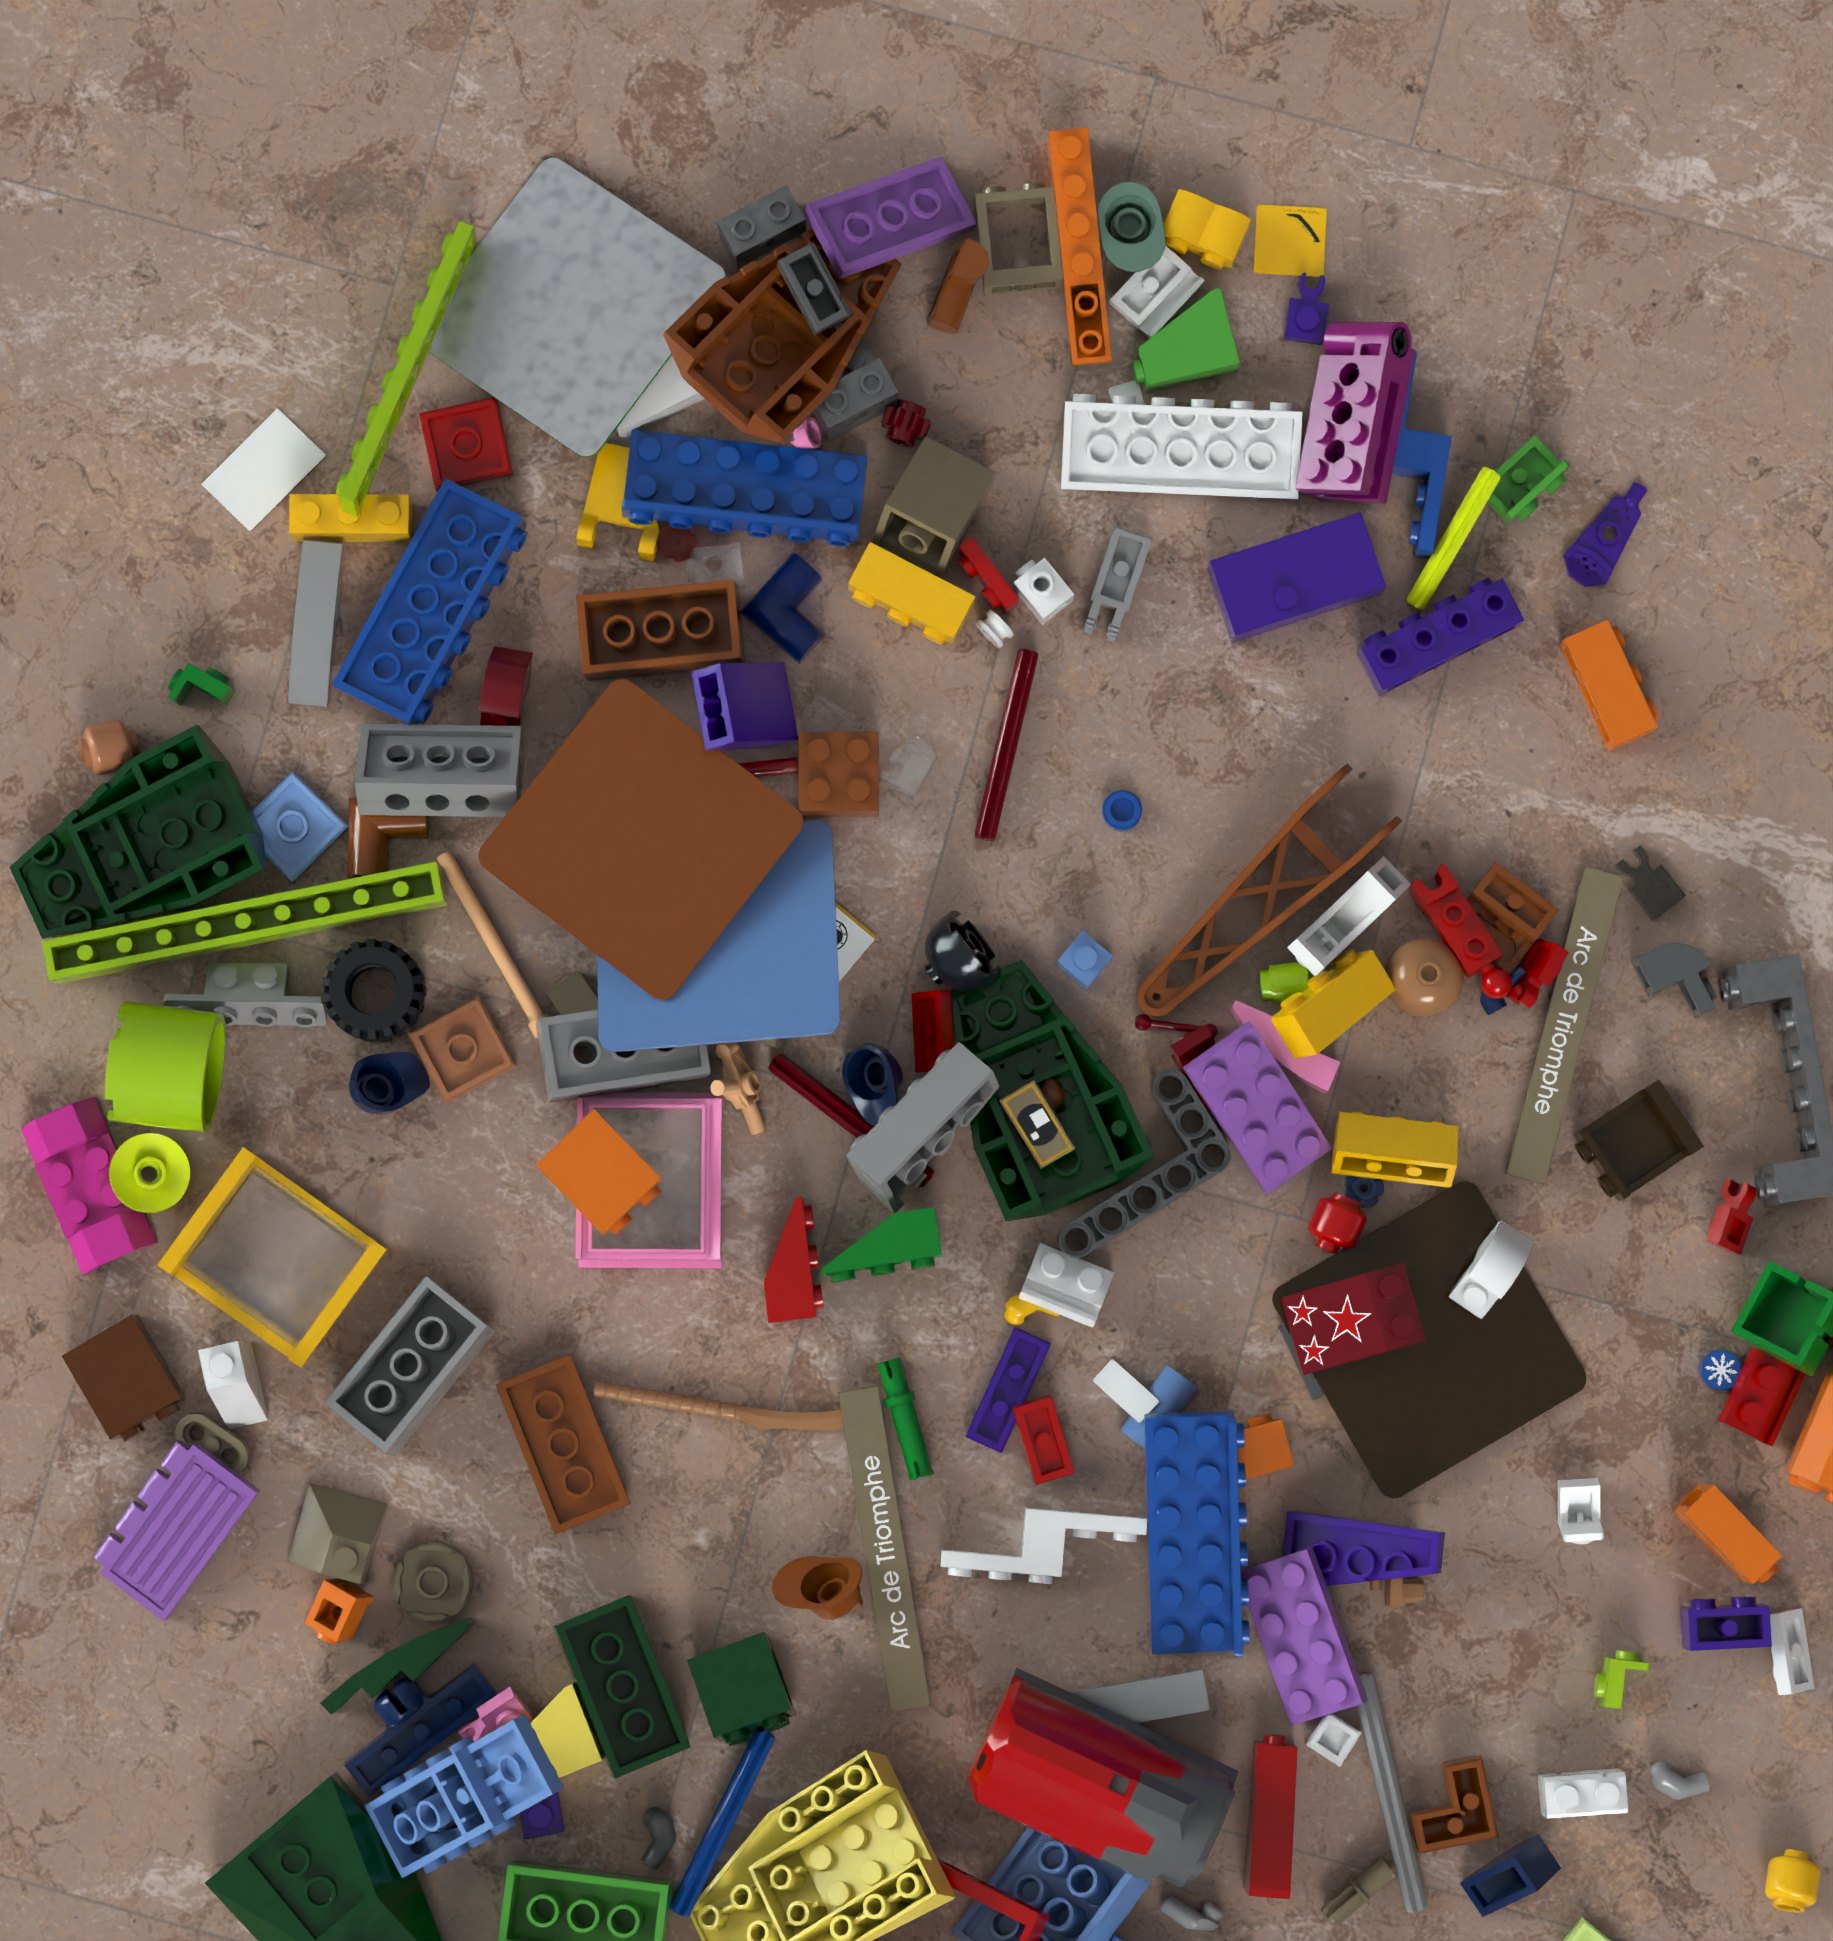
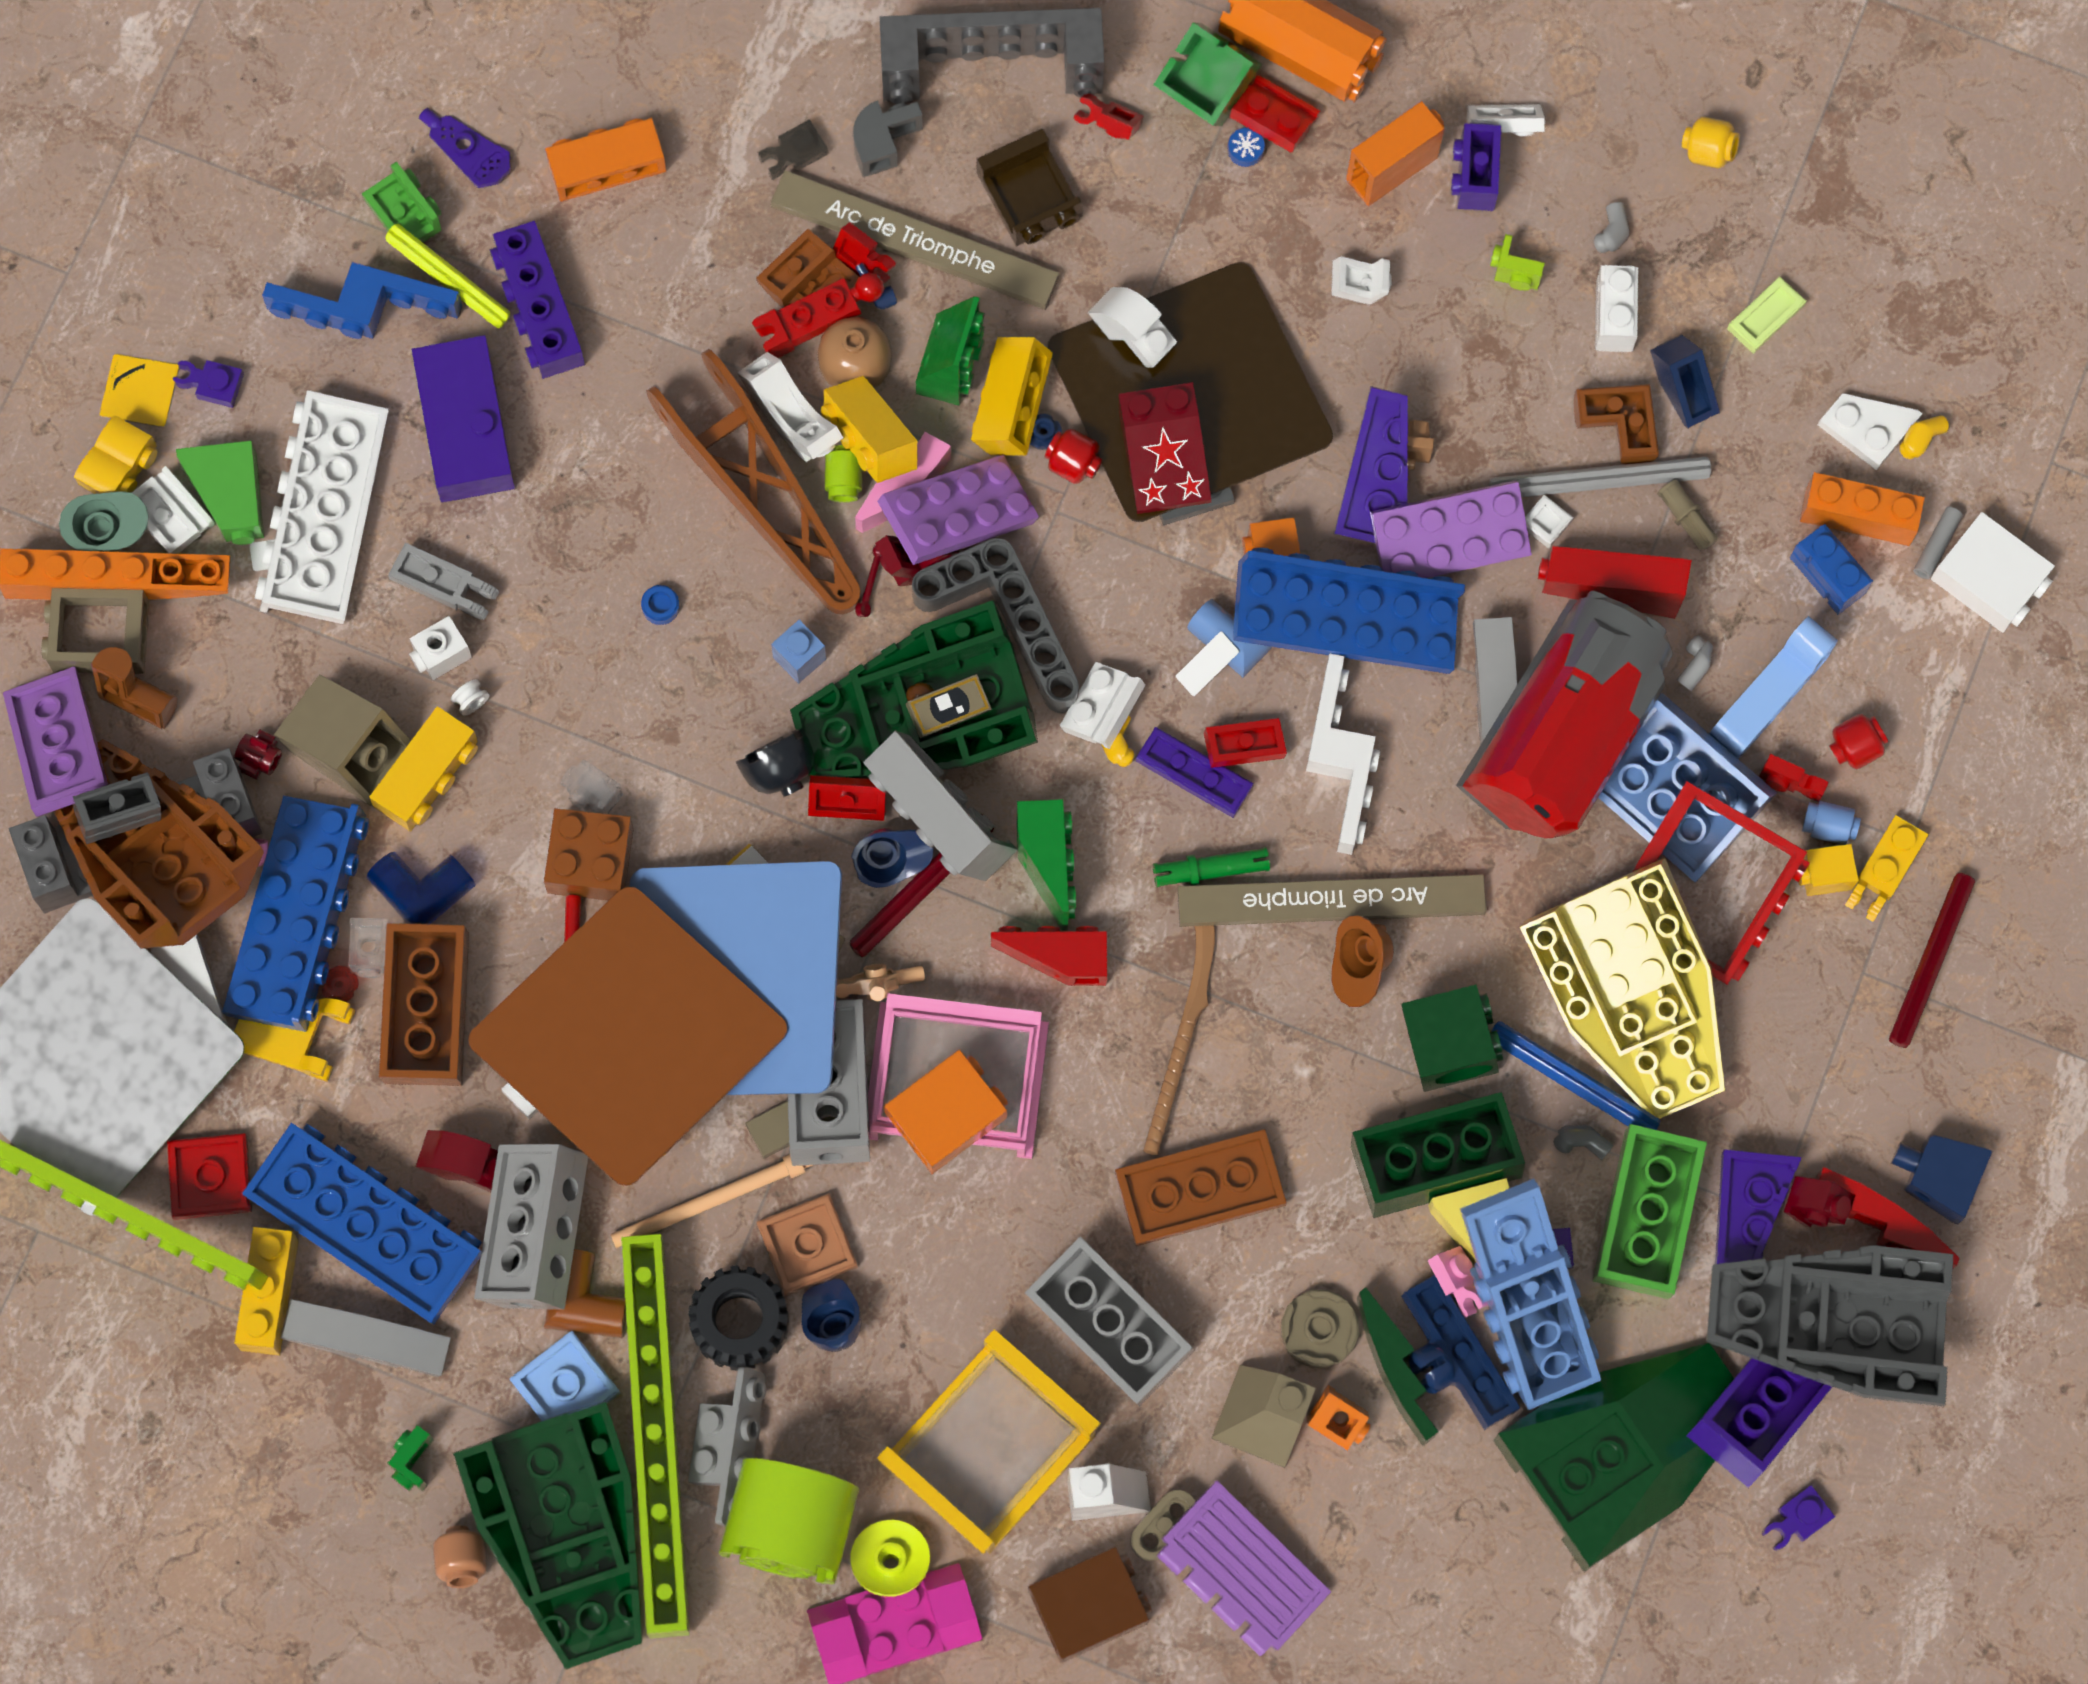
camera: 85 degrees left, 10 degrees down
(263, 469) = (202, 1378): white sticker -> none
(744, 705) = (511, 928): dark purple brick -> none
(976, 563) = (429, 691): red plate -> none
(1006, 745) = (582, 701): dark red axle -> none
(1356, 412) = (260, 339): magenta hinge -> none
(1433, 1078) = (951, 352): none -> green slope

